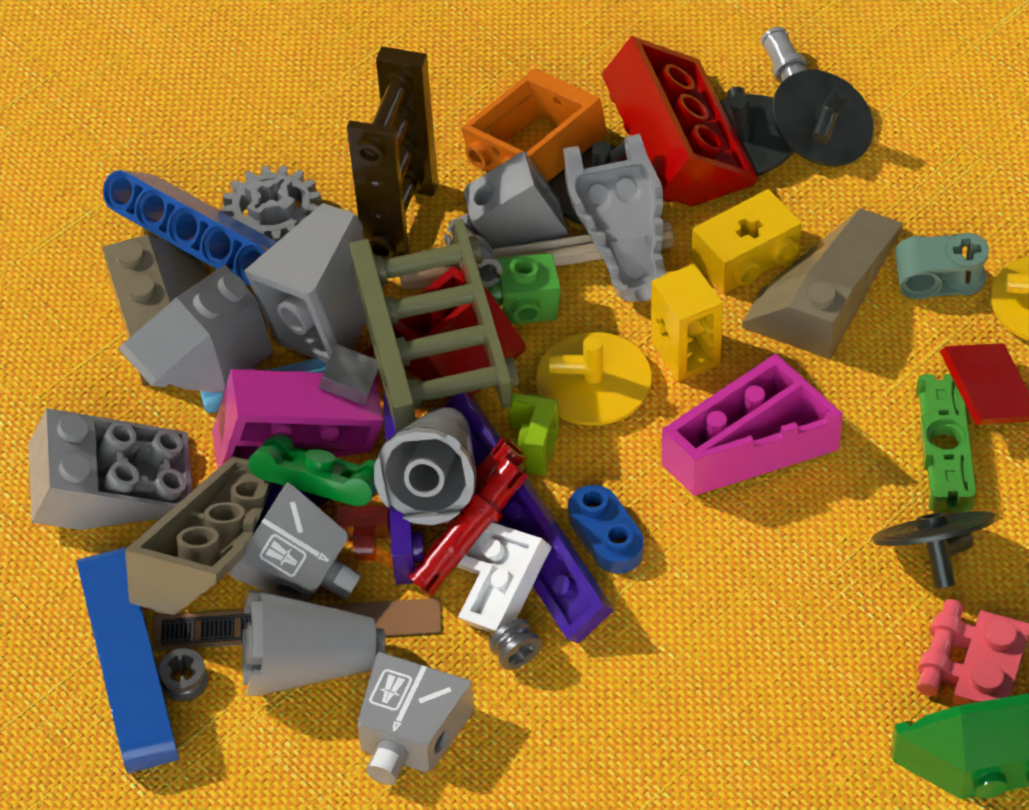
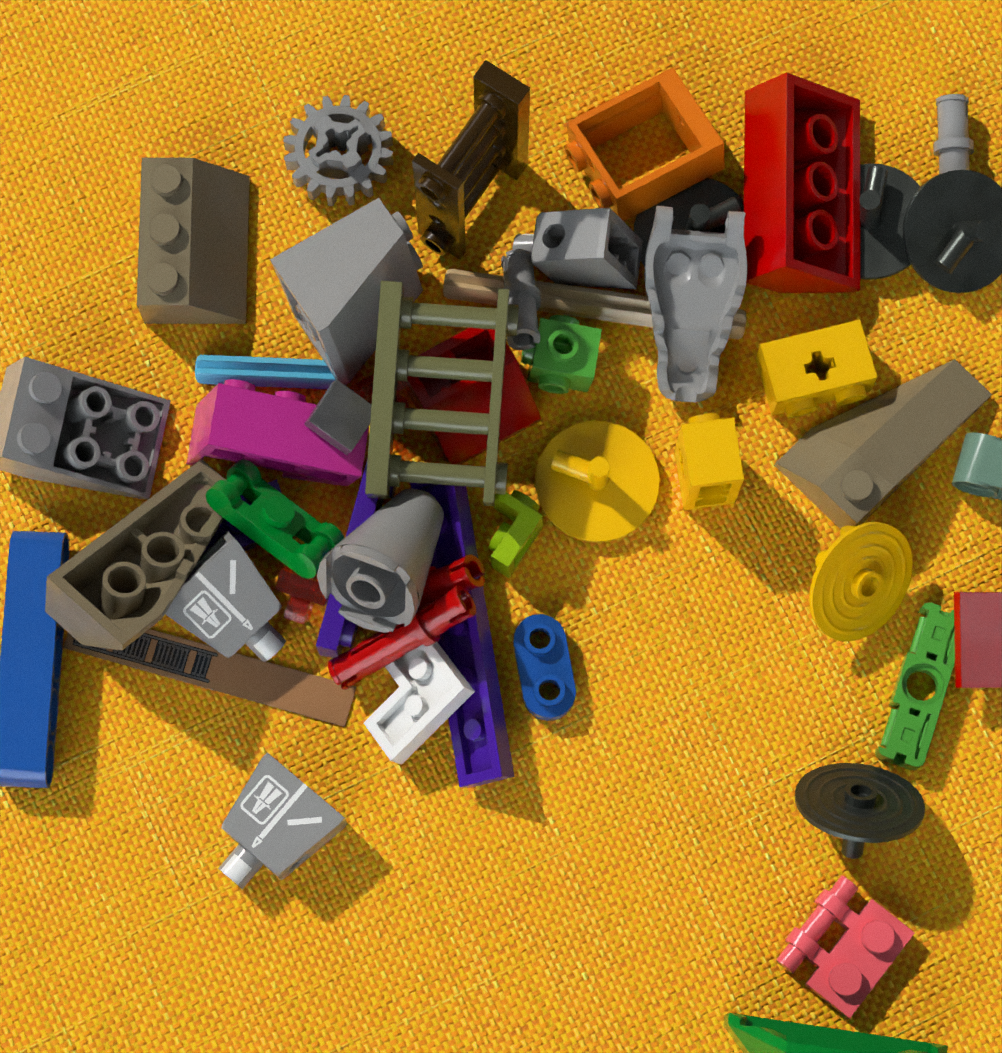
camera: 15 degrees right, 25 degrees up
(180, 660) = (97, 692): flat silver bush -> none
(185, 221) = (246, 152): blue beam -> none
(201, 336) = (208, 318): light grey wedge -> none
(303, 643) = (202, 711): light grey cone -> none
(515, 644) = (406, 776): flat silver bush -> none
(751, 429) = (726, 613): dark pink wedge -> none
(856, 368) = (860, 580): none -> yellow shield

